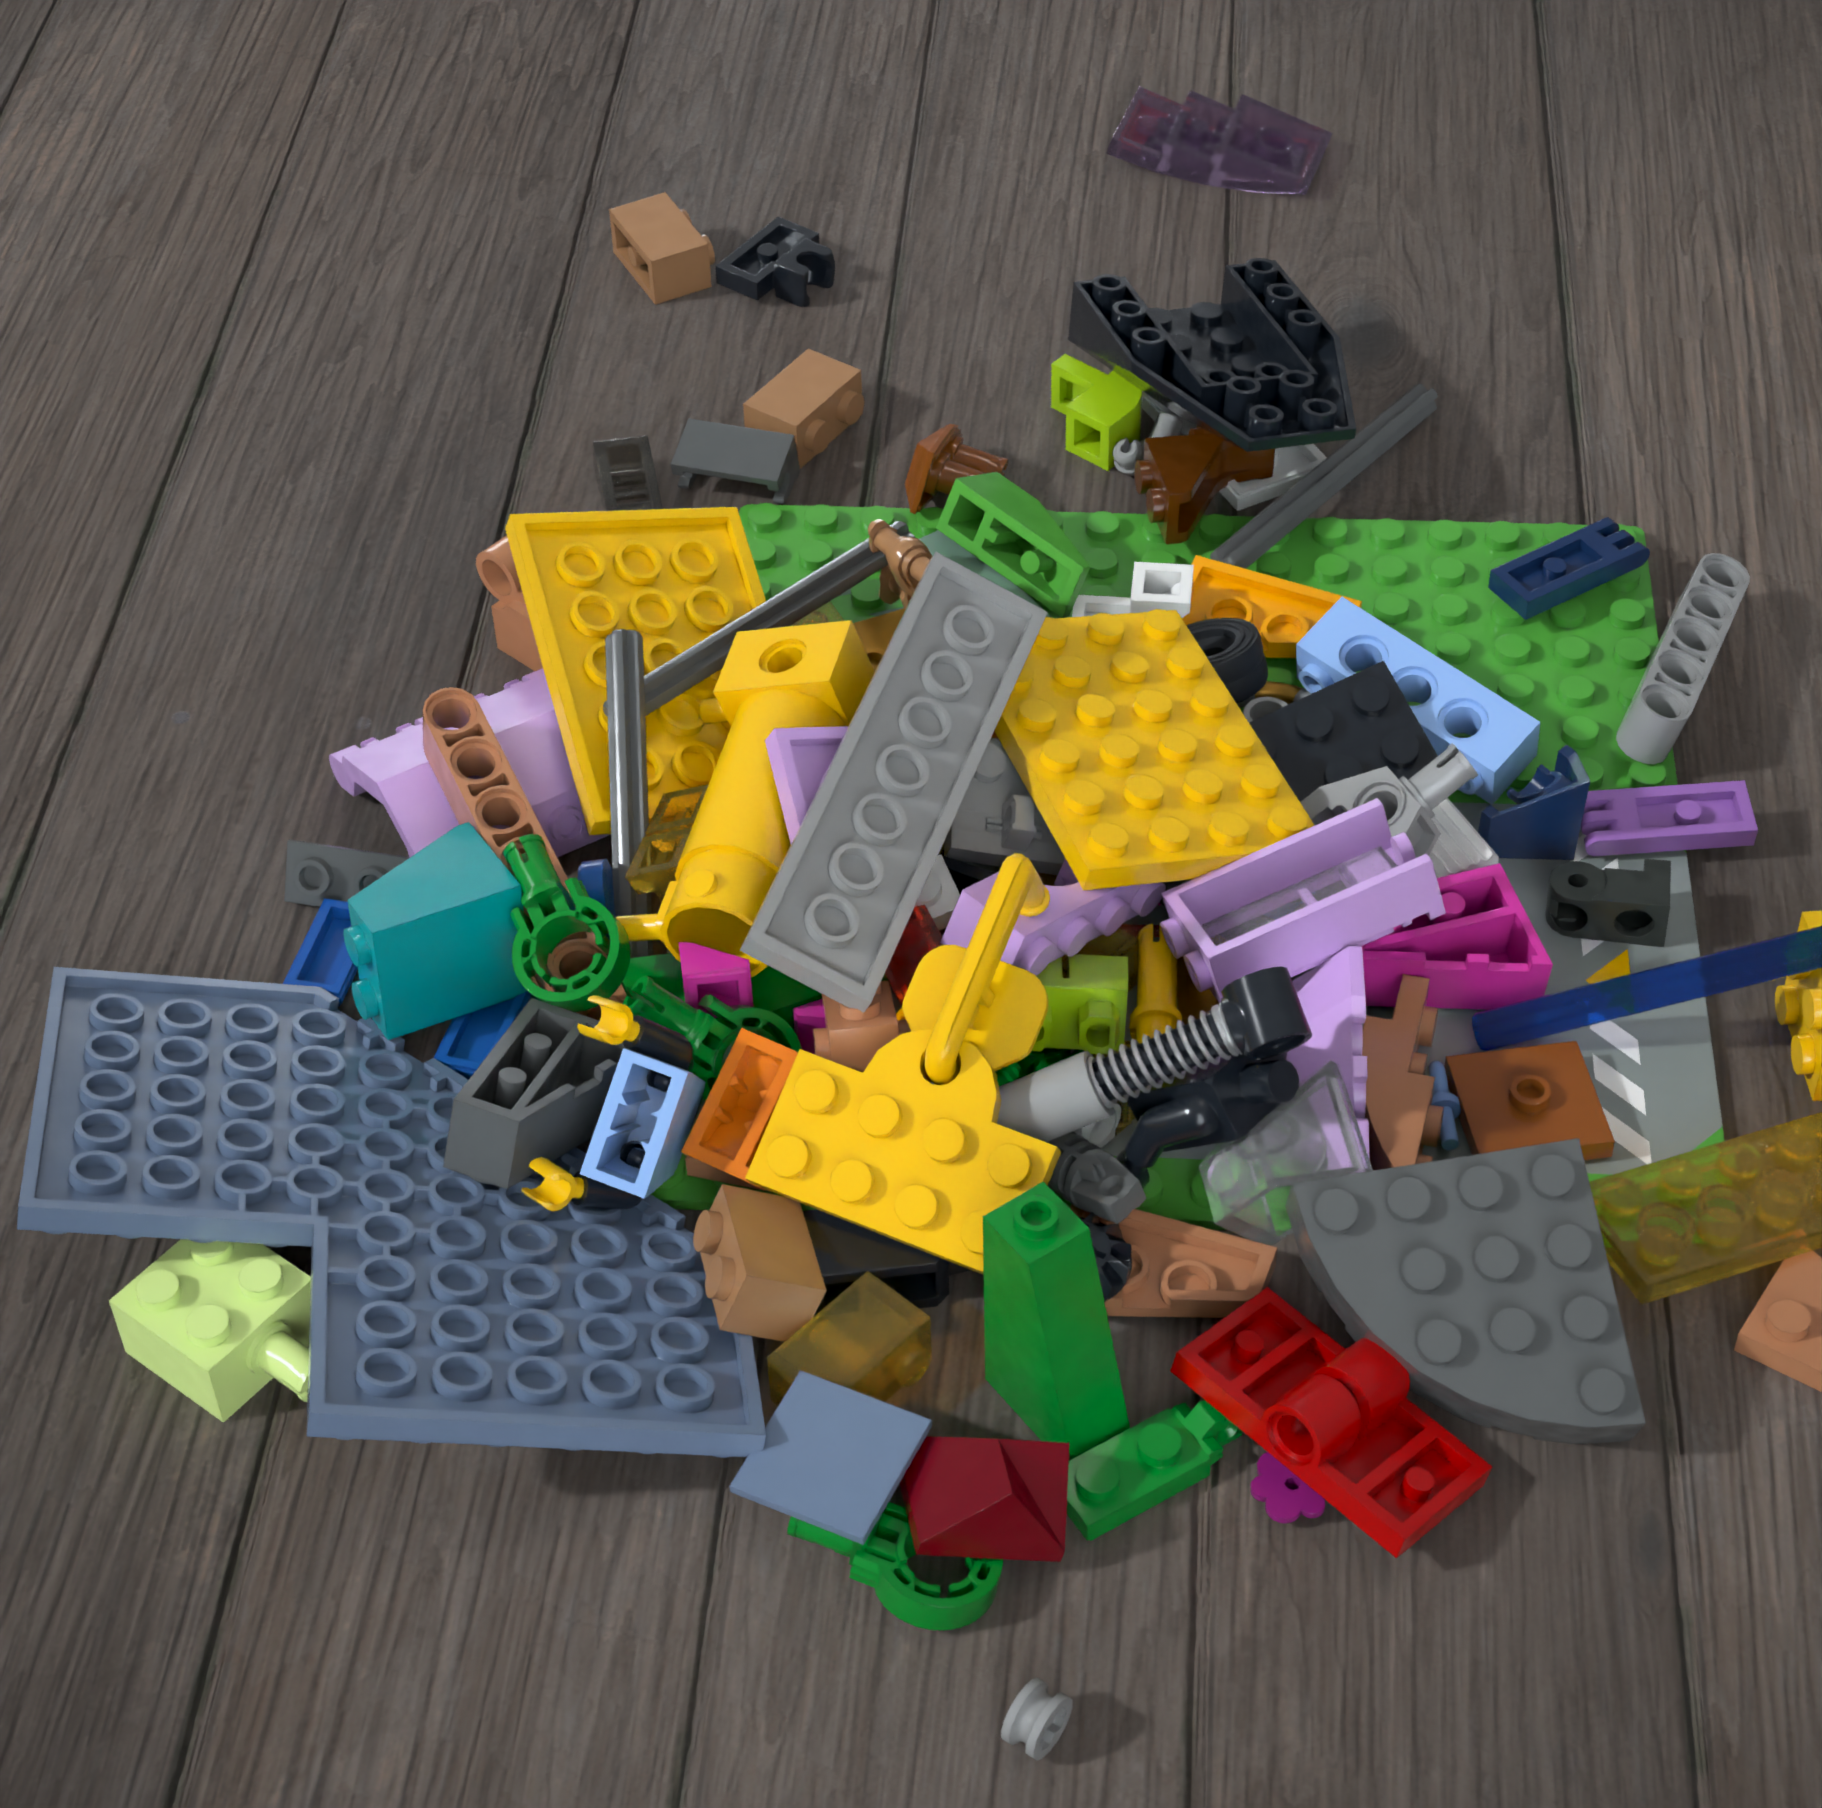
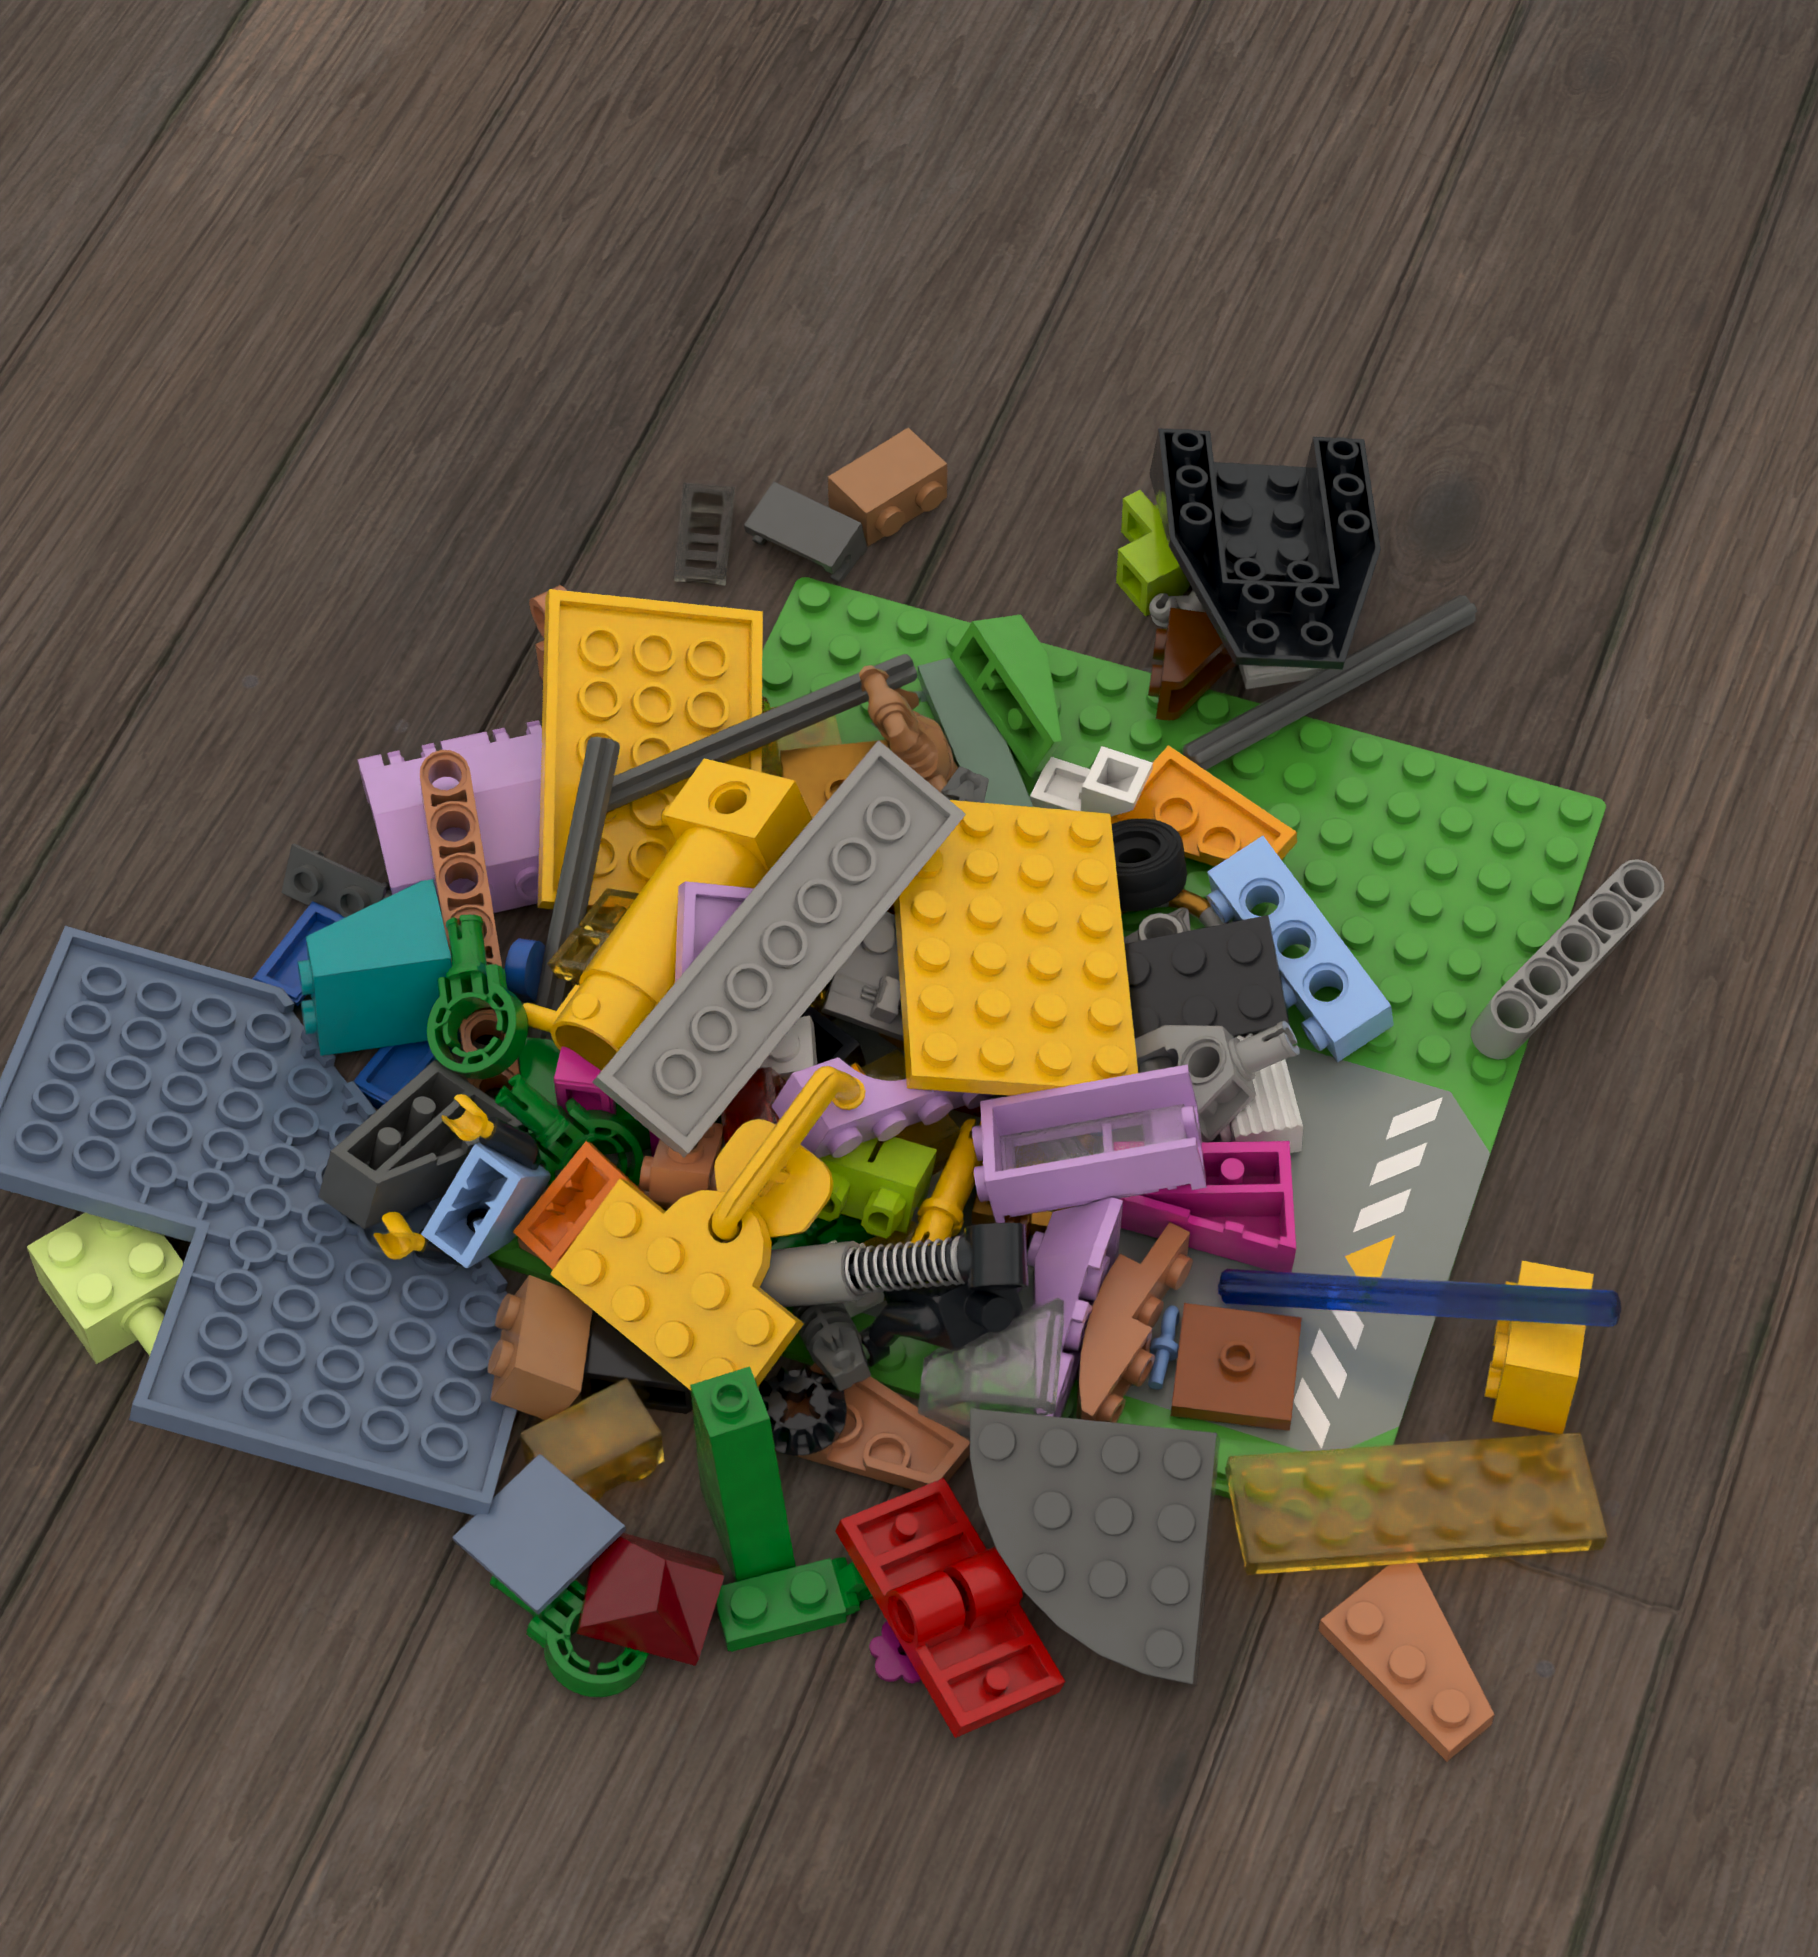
camera: 15 degrees right, 10 degrees up
(661, 248) = (823, 269): medium nougat brick -> none
(779, 258) = (925, 307): black plate -> none
(940, 461) = (993, 589): dark orange connector -> none
(1036, 1718) = (626, 1790): light grey bush -> none
(1218, 145) = (1395, 264): clear purple slope -> none
(1546, 816) = (1368, 1092): dark blue slope -> none
(1567, 567) = (1505, 837): dark blue hinge -> none
(1610, 902) = (1392, 1191): pearl dark grey leg -> none
(1668, 818) = (1478, 1119): medium lavender hinge -> none

